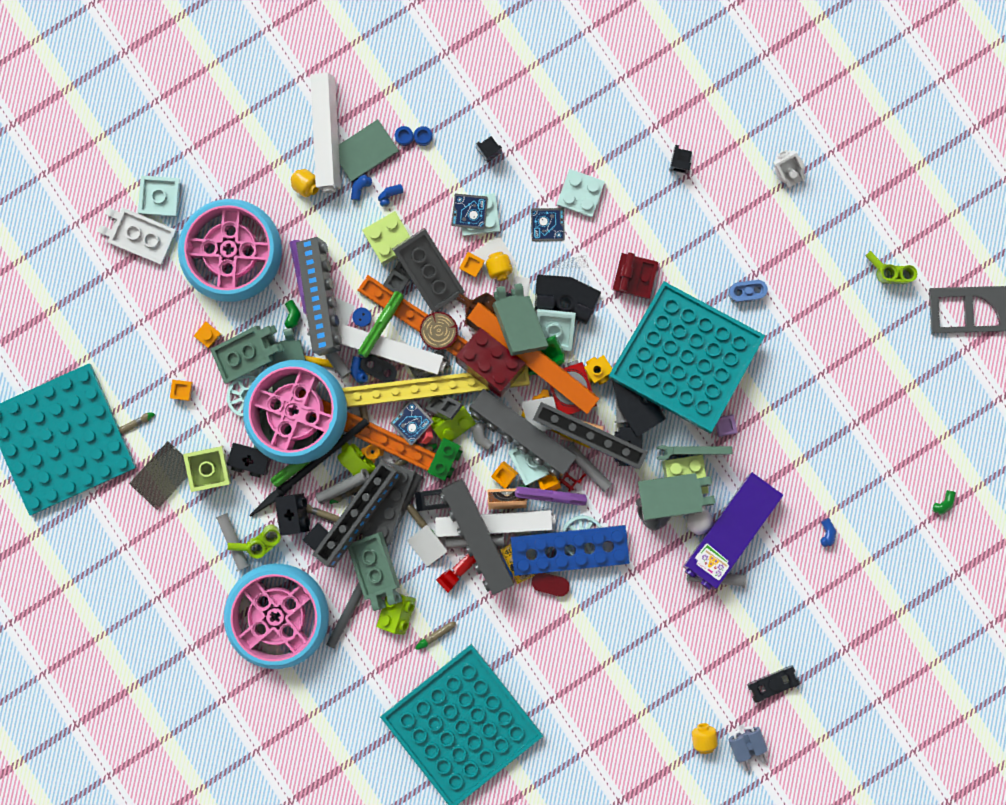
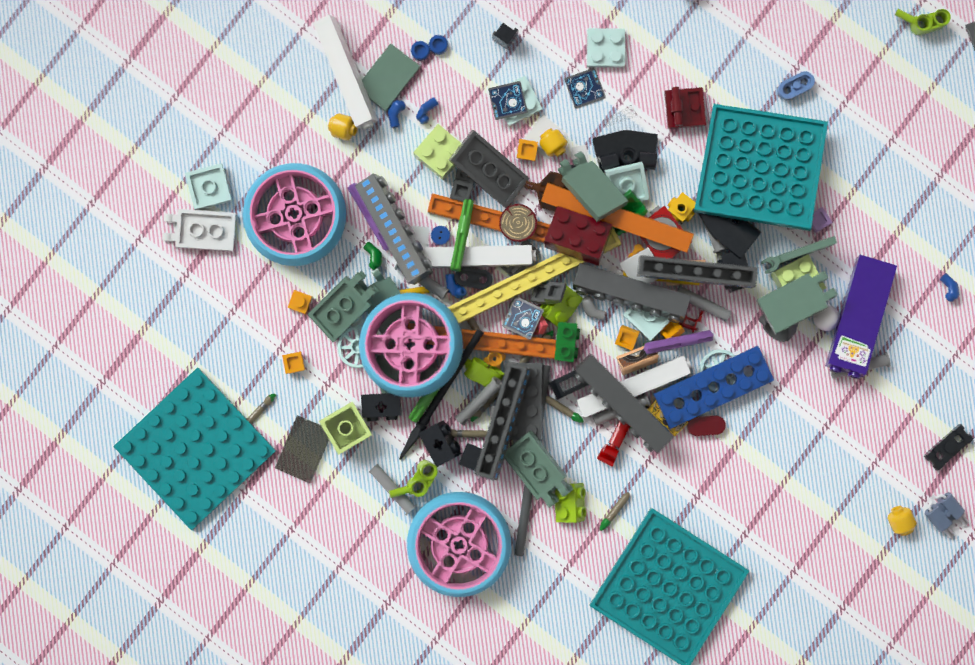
camera: 10 degrees left, 0 degrees up
(427, 545) = (577, 429): white sticker -> none

